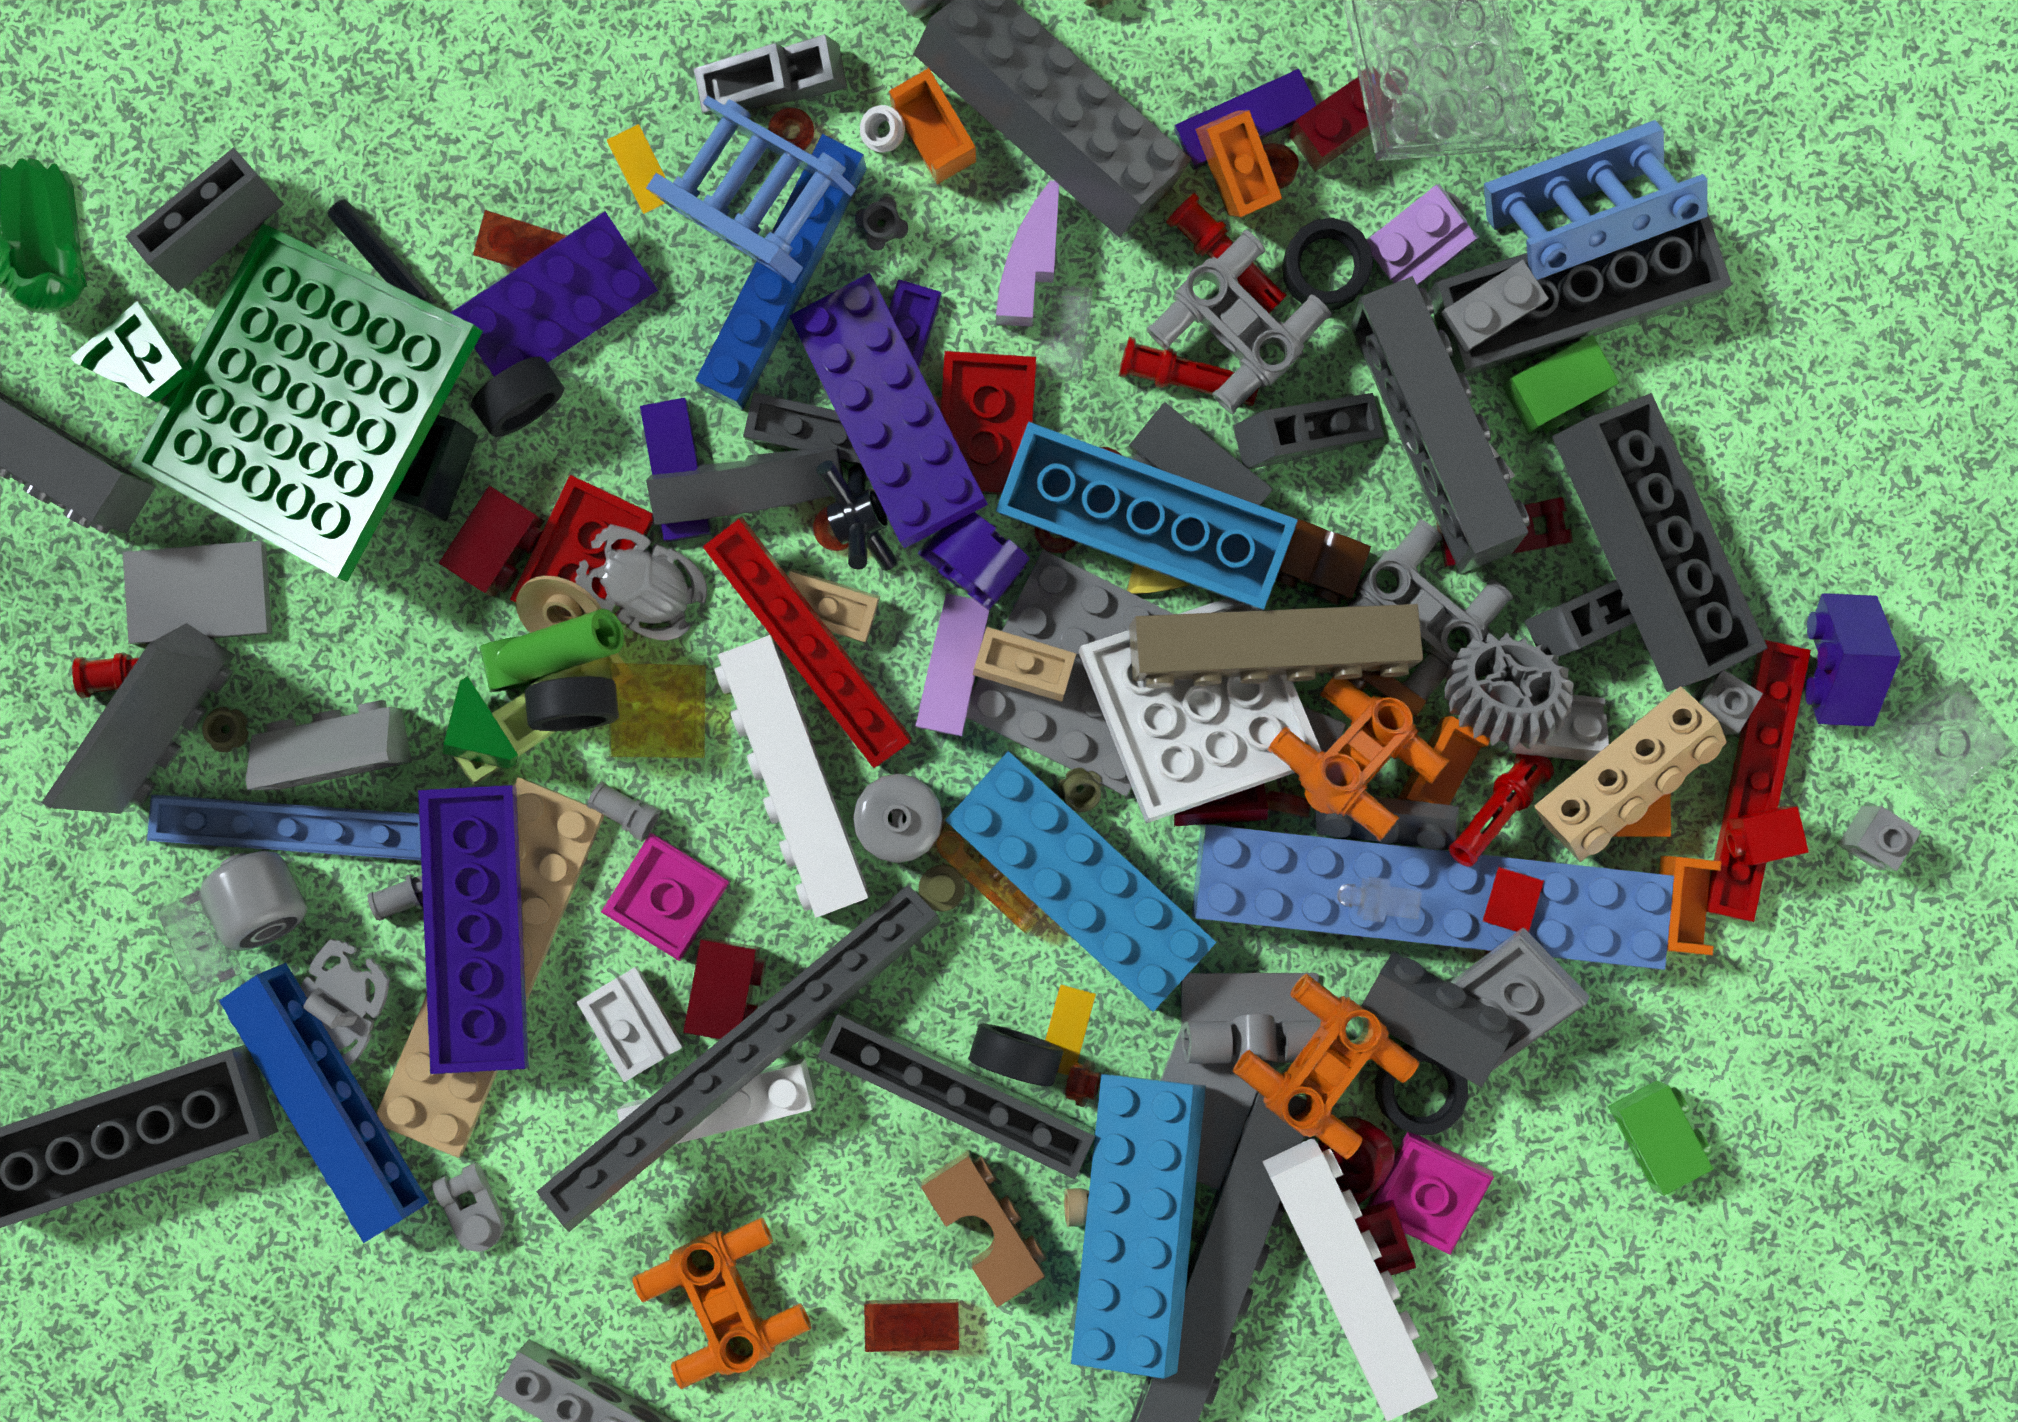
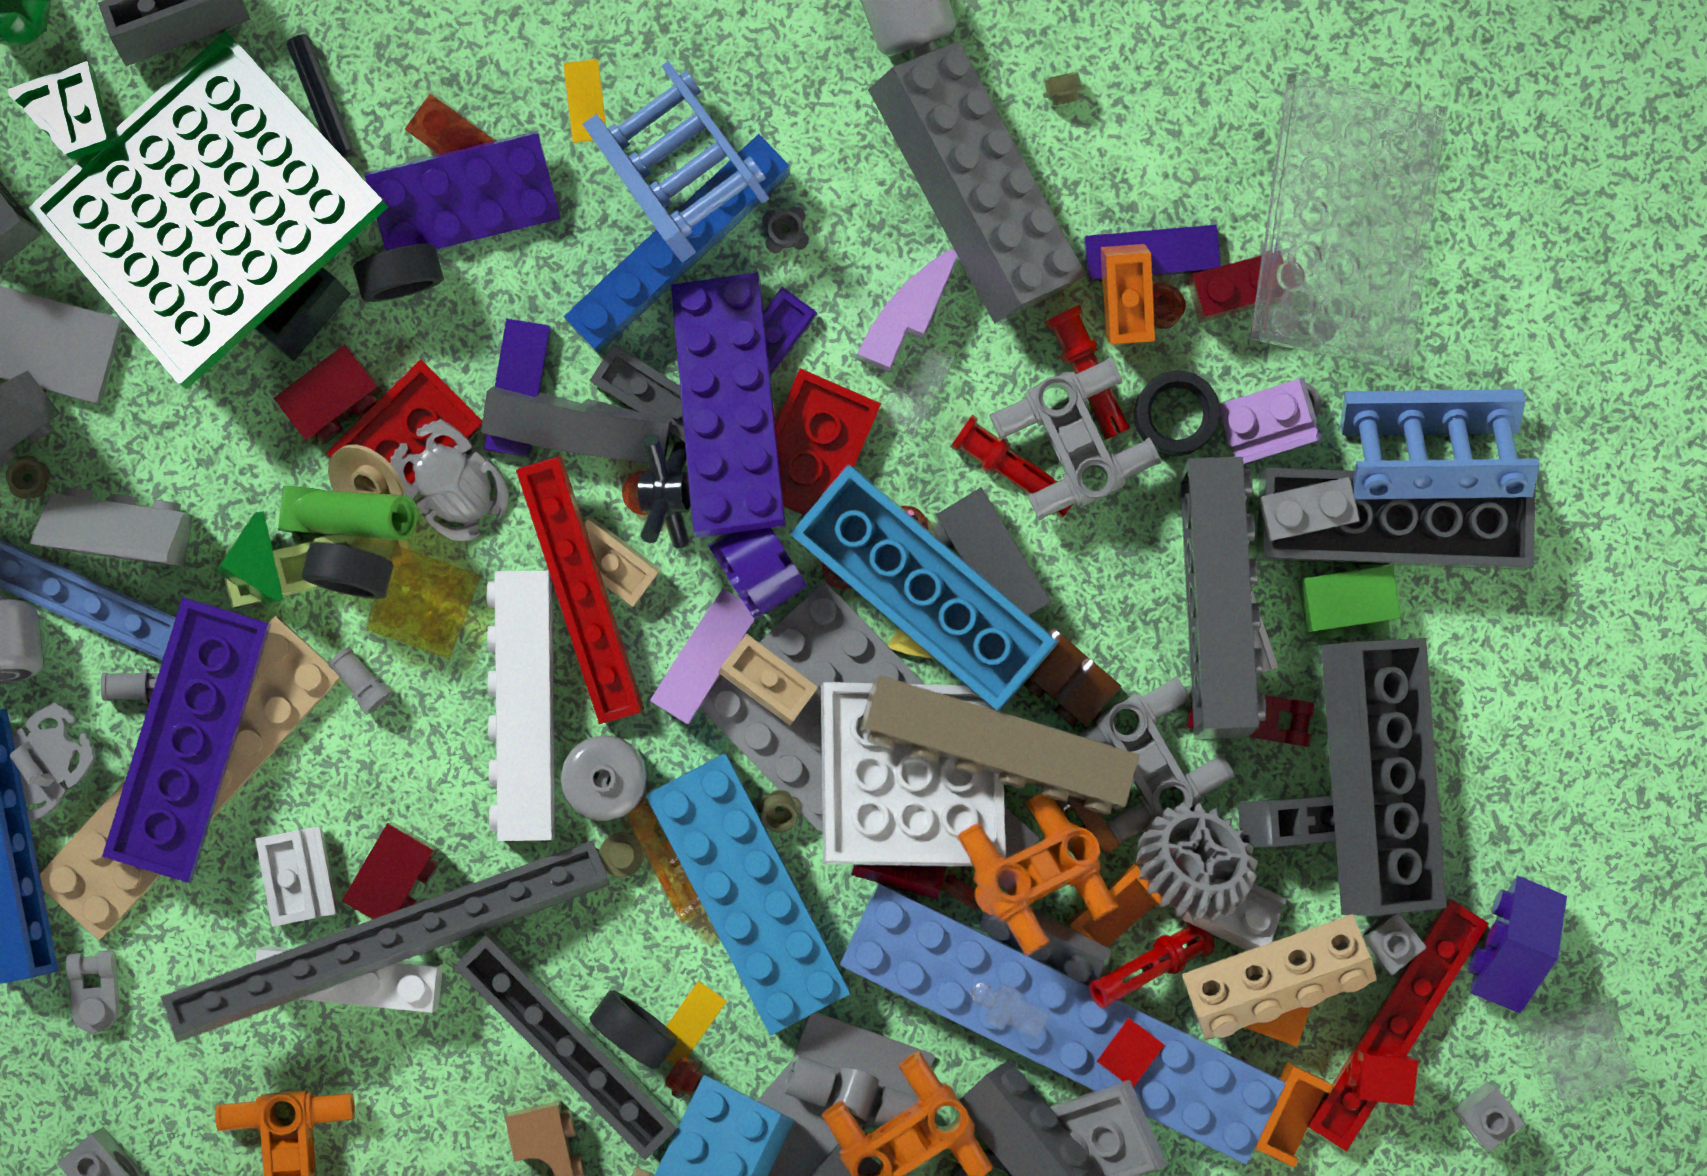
camera: 20 degrees right, 0 degrees up
(665, 896) = (369, 772): dark pink plate -> none
(773, 74) = (734, 60): dark grey slope -> none
(796, 117) = (731, 102): clear red plate -> none
(871, 122) = (805, 142): white plate -> none
(933, 126) = (863, 159): orange panel -> none
(1307, 430) = (1104, 558): dark grey slope -> none

